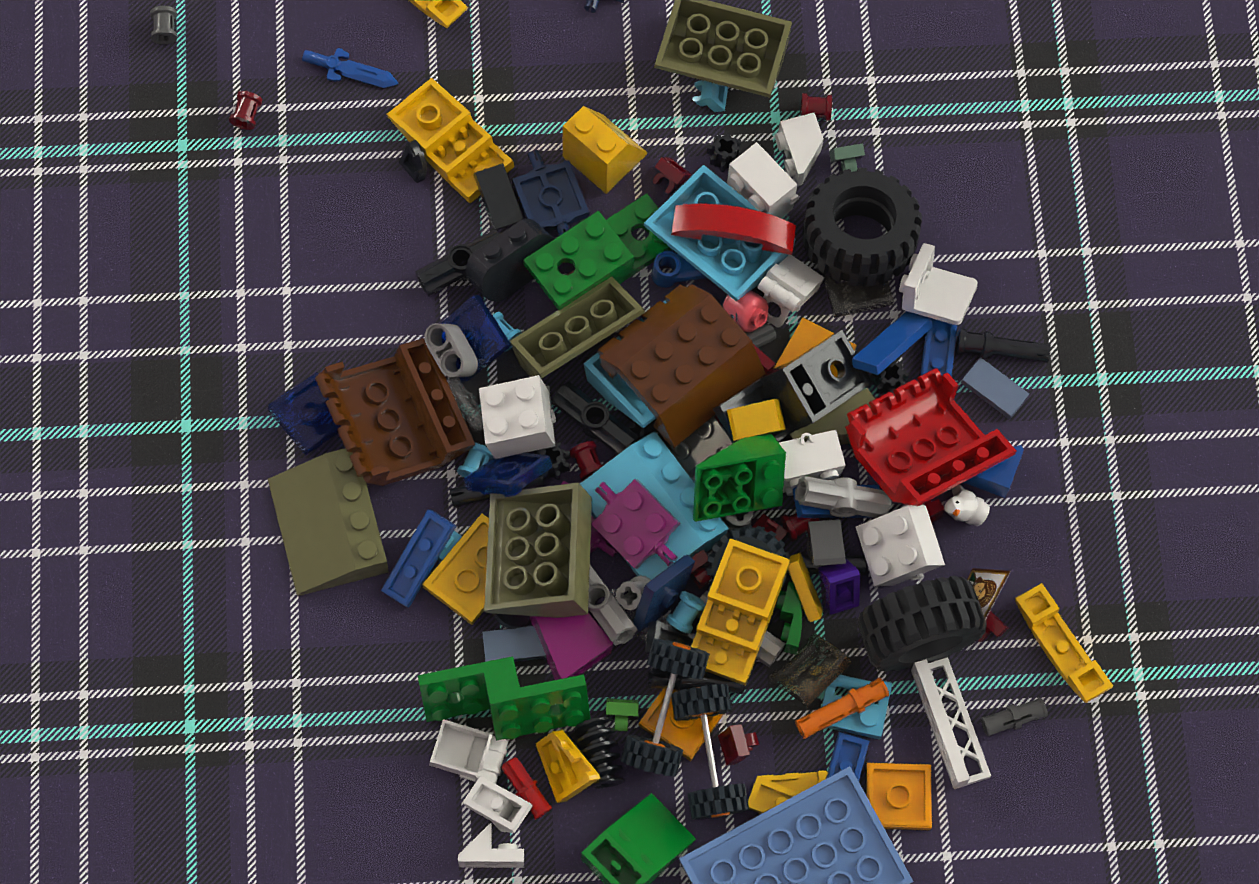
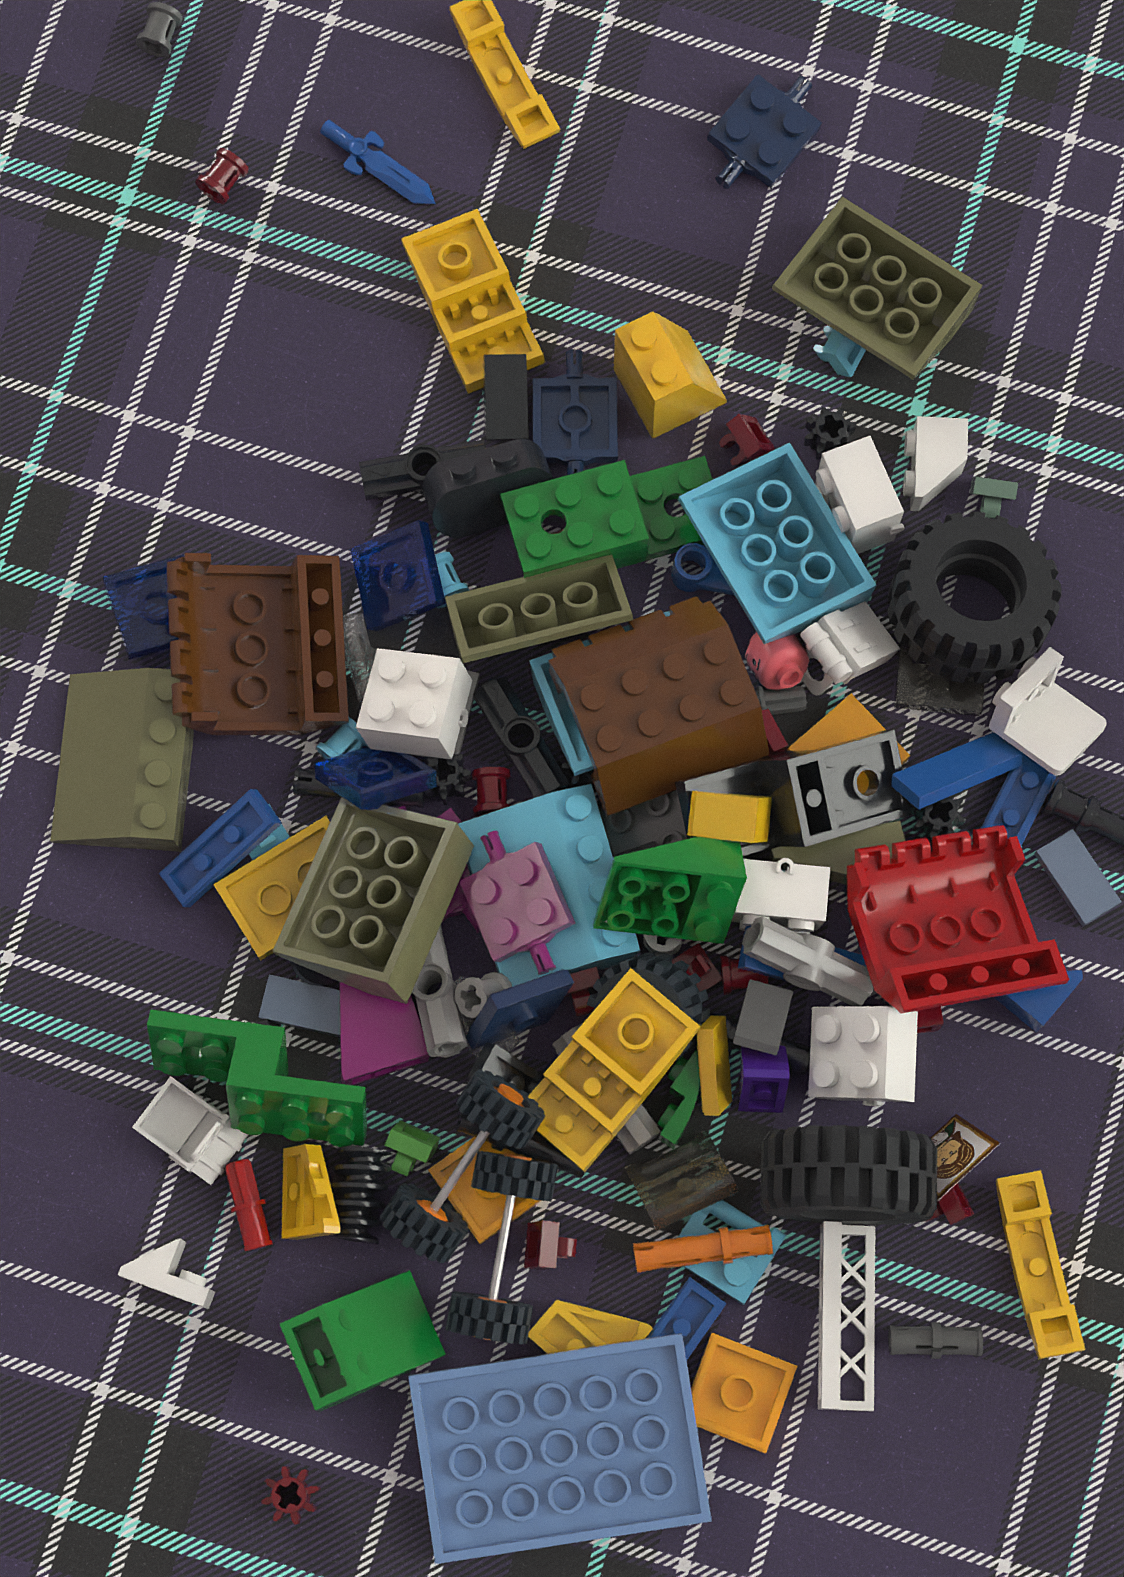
camera: 25 degrees right, 5 degrees up
(414, 161) = (414, 314): black tile -> none
(447, 353) = (363, 584): light grey beam -> none
(497, 805) = (197, 1216): white slope -> none
(686, 612) = (541, 1044): medium azure bush -> none
(734, 223) = (799, 538): red slope -> none
(819, 105) = (978, 411): dark red bush -> none
(966, 507) = (976, 1030): white animal -> none

